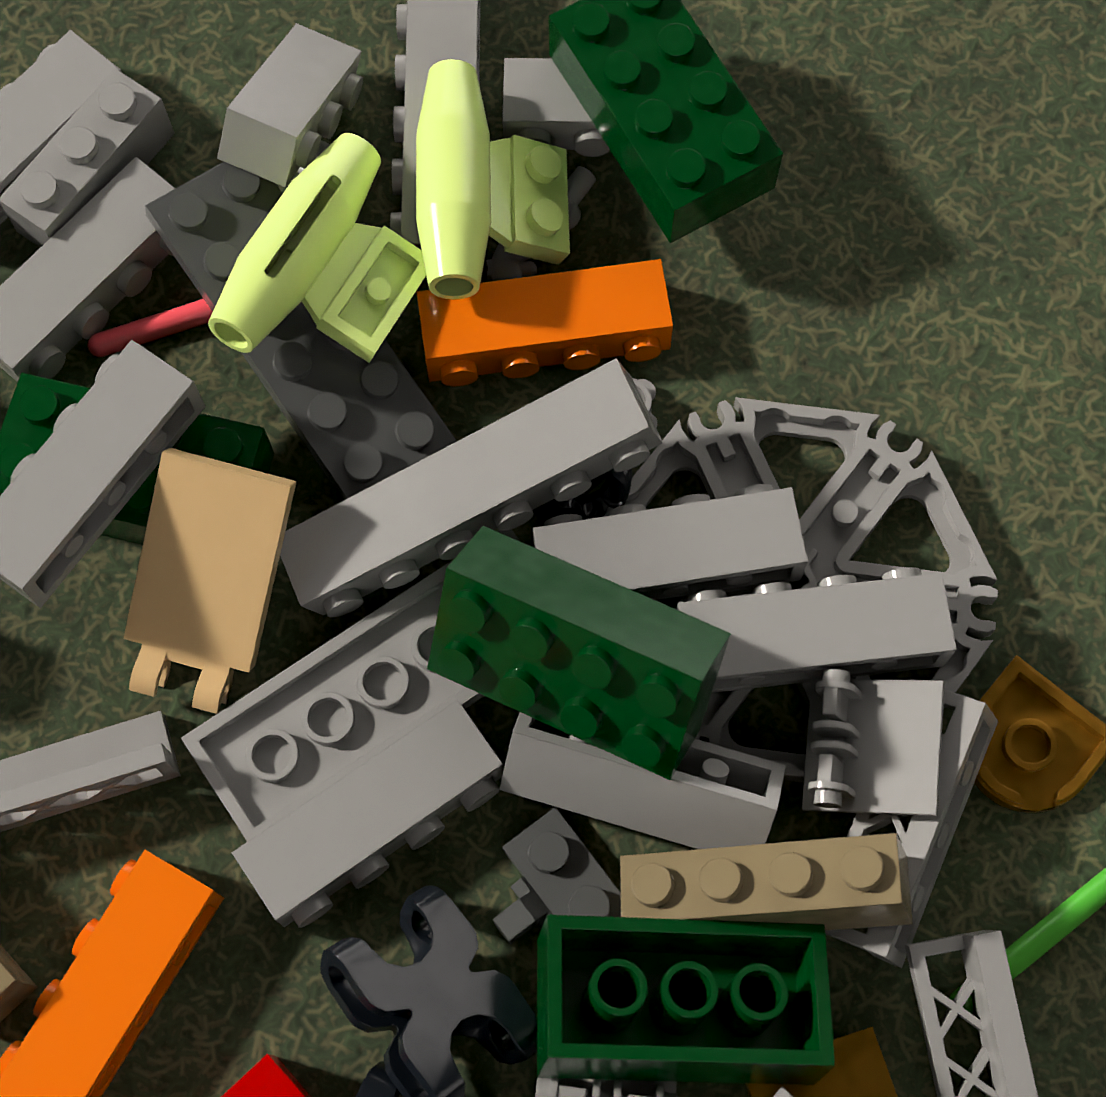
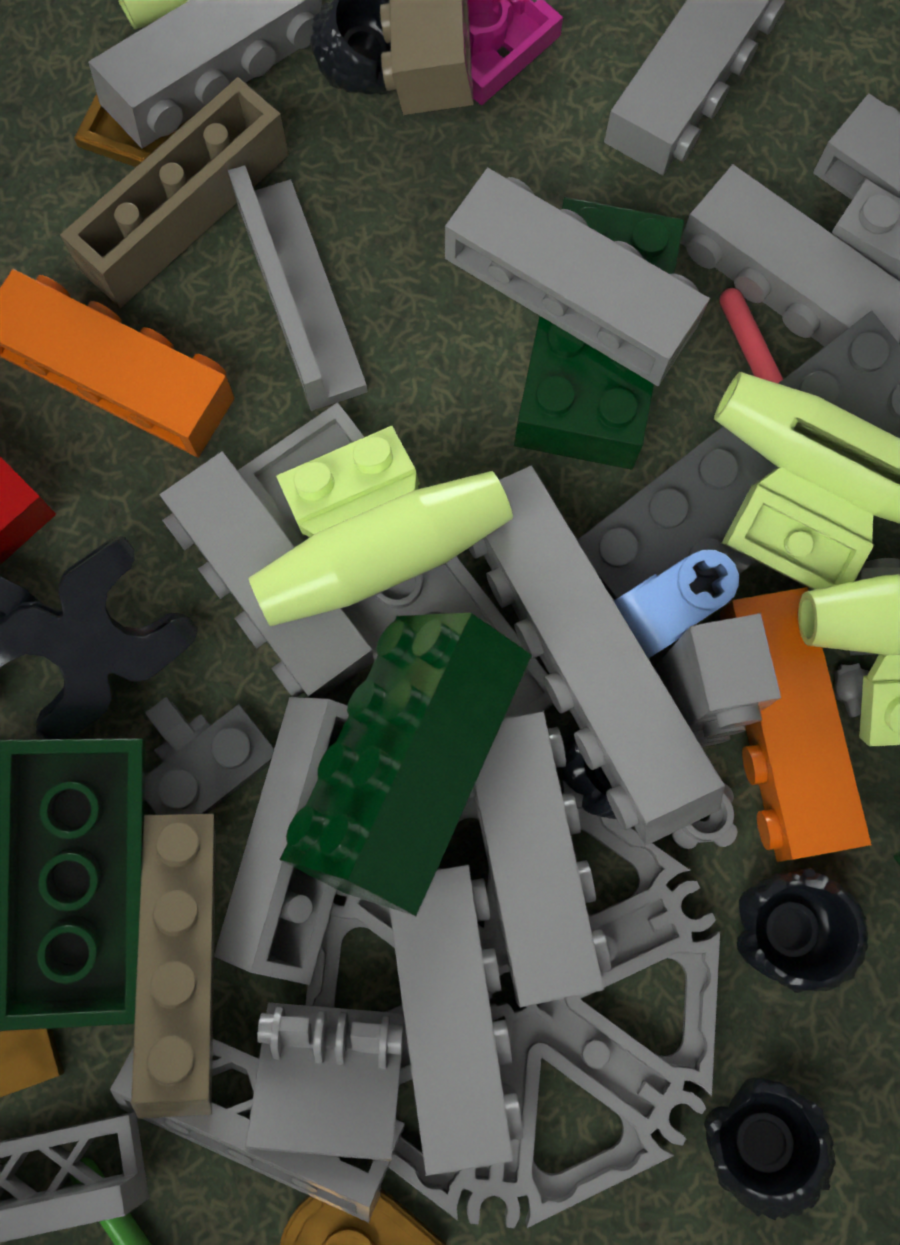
camera: 85 degrees right, 5 degrees up
(206, 572) = (493, 403): tan tile -> none
(329, 694) = (370, 527): none -> yellowish green plate
(424, 415) = (666, 606): none -> light blue piece
(510, 358) = (721, 677): none -> light grey brick
(735, 326) = (802, 931): none -> black hair
(922, 368) = (771, 1148): none -> black hair

